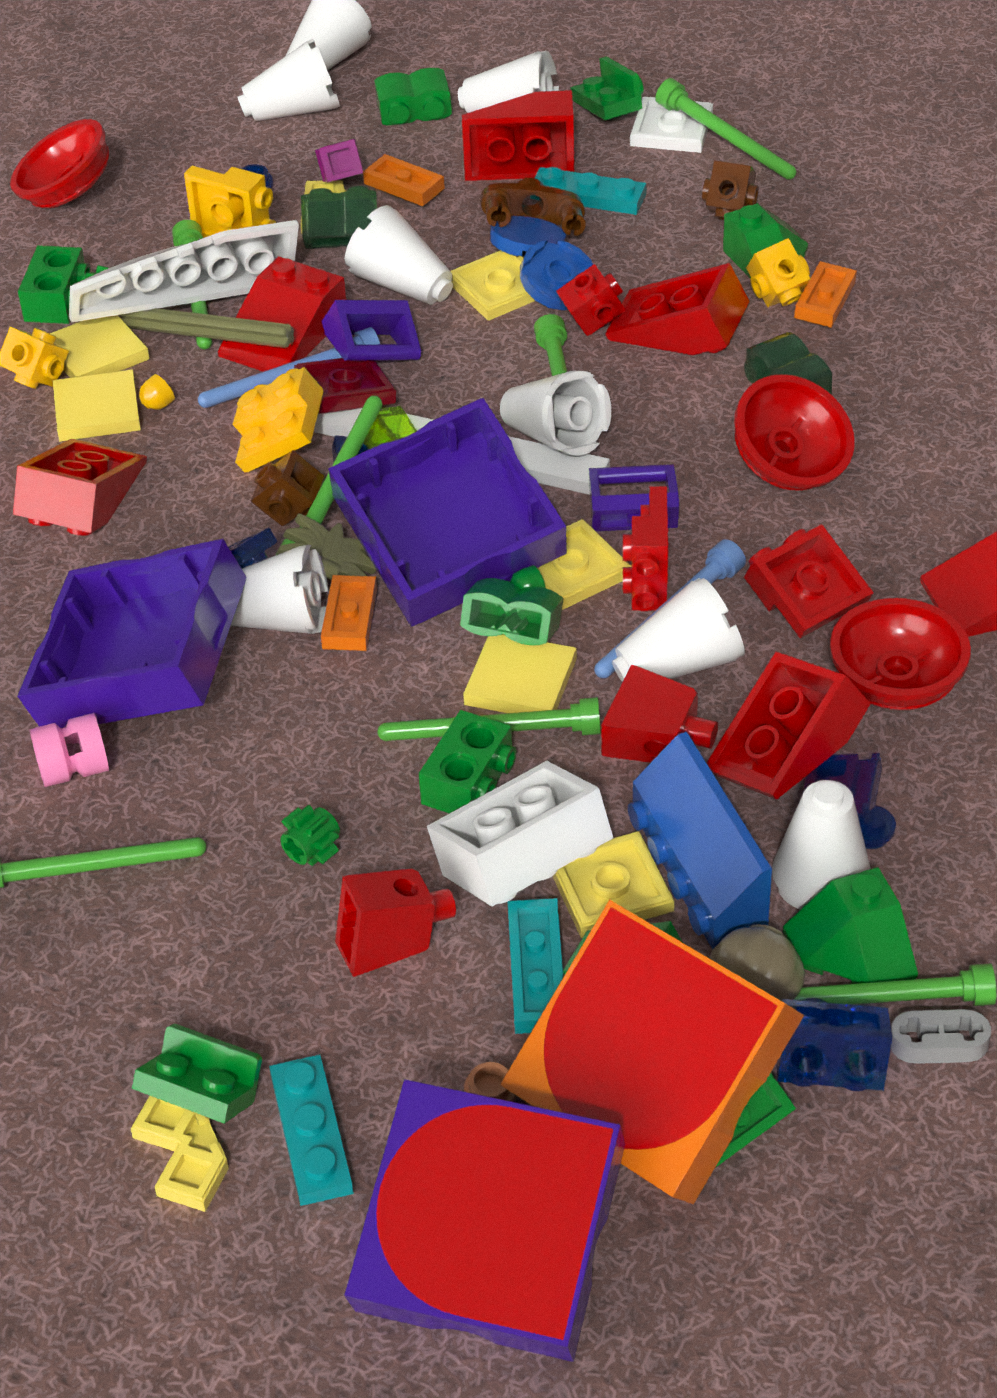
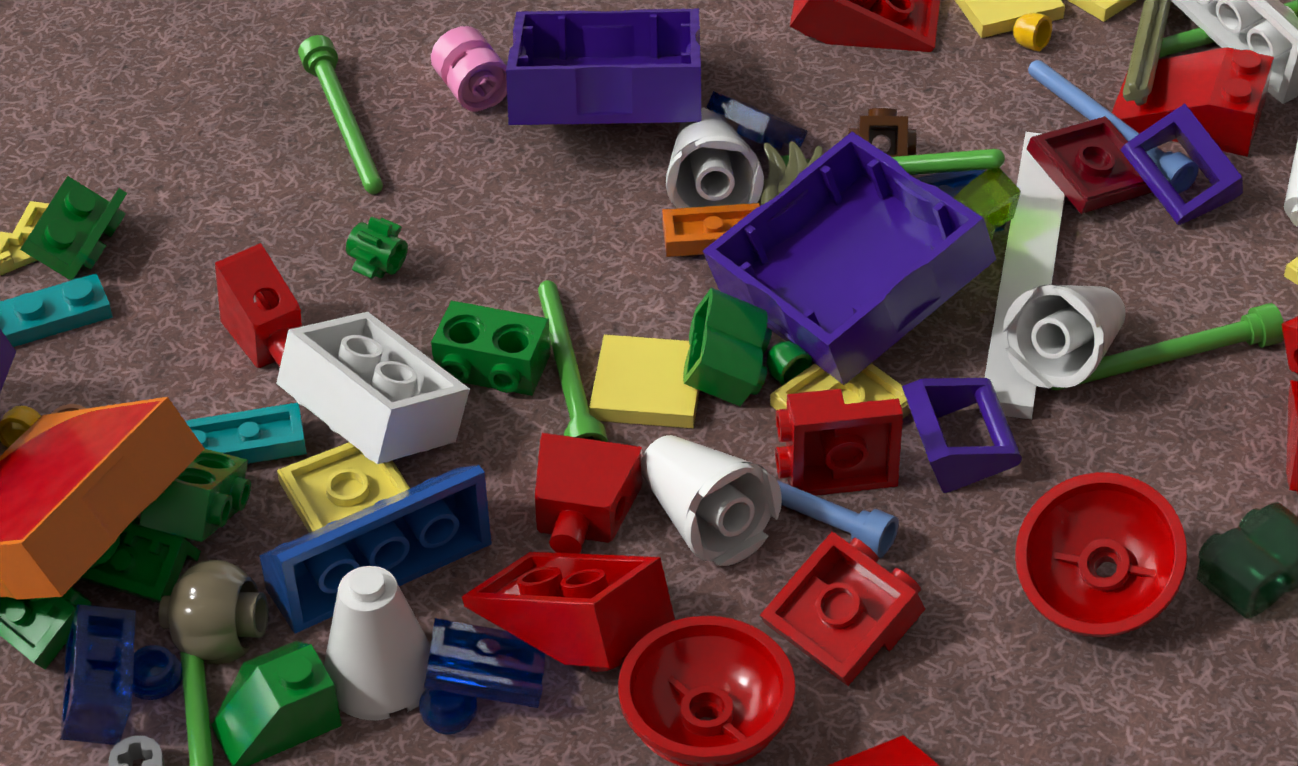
camera: 80 degrees right, 0 degrees up
(276, 418) = (1007, 111): yellow plate -> none

